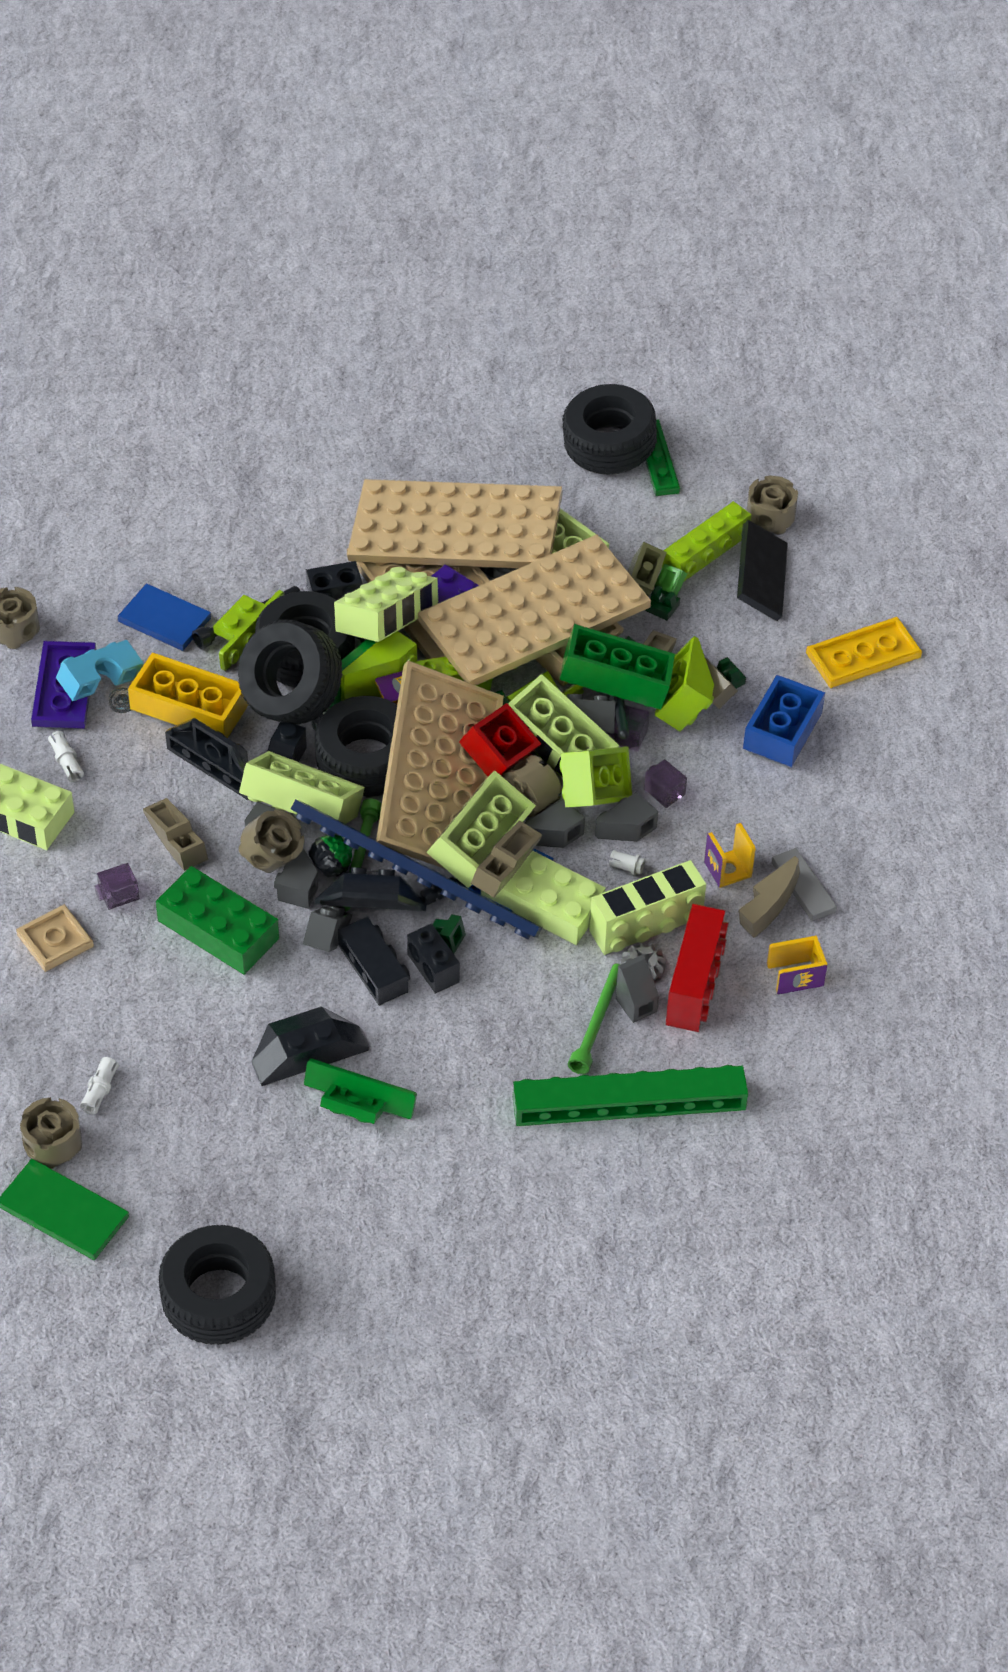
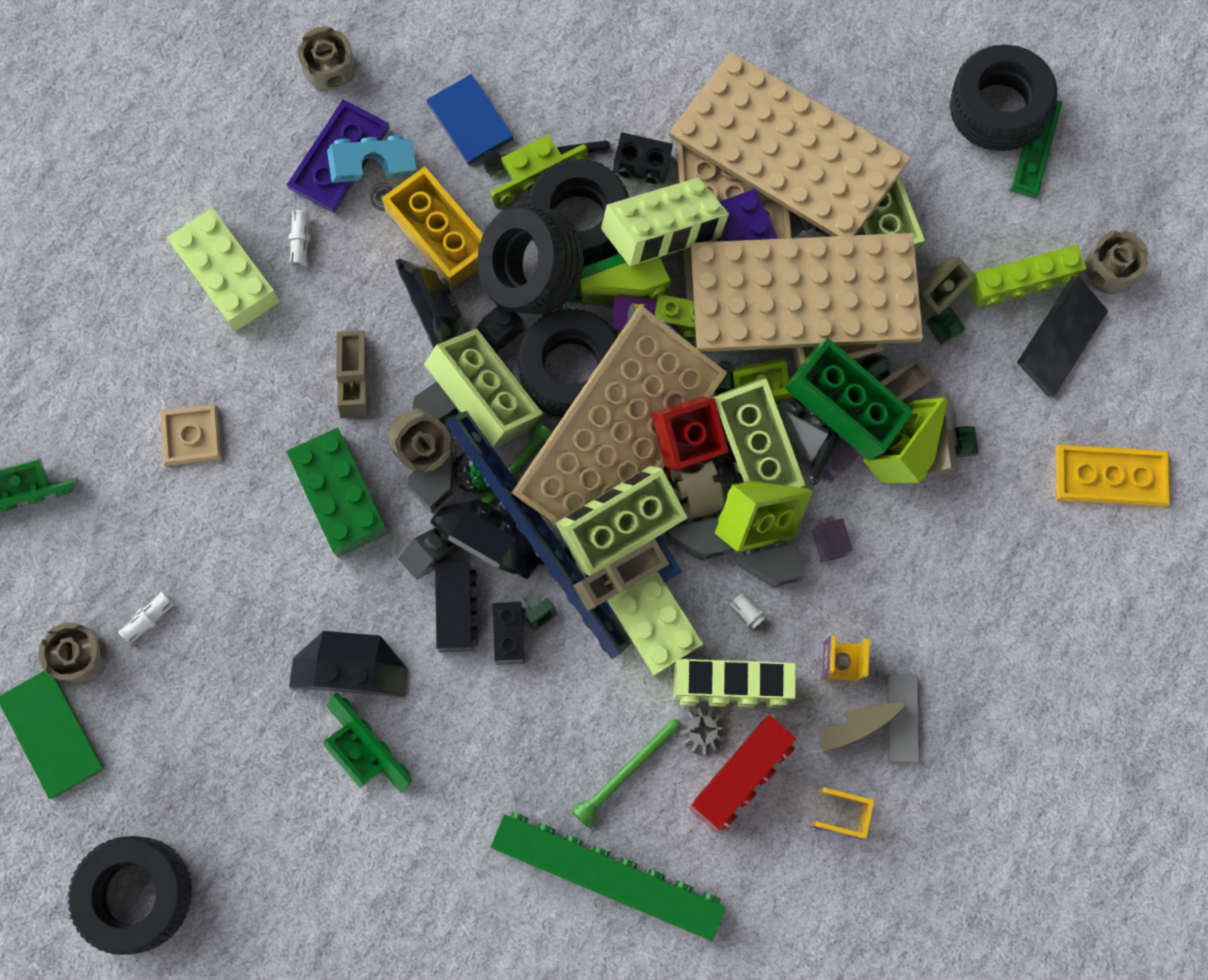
camera: 25 degrees right, 25 degrees up
(117, 886) = (269, 409): clear purple brick -> none
(636, 989) = (673, 767): dark grey slope -> none
(670, 579) = (967, 305): bright green tile -> none
(783, 720) = (985, 526): blue brick -> none

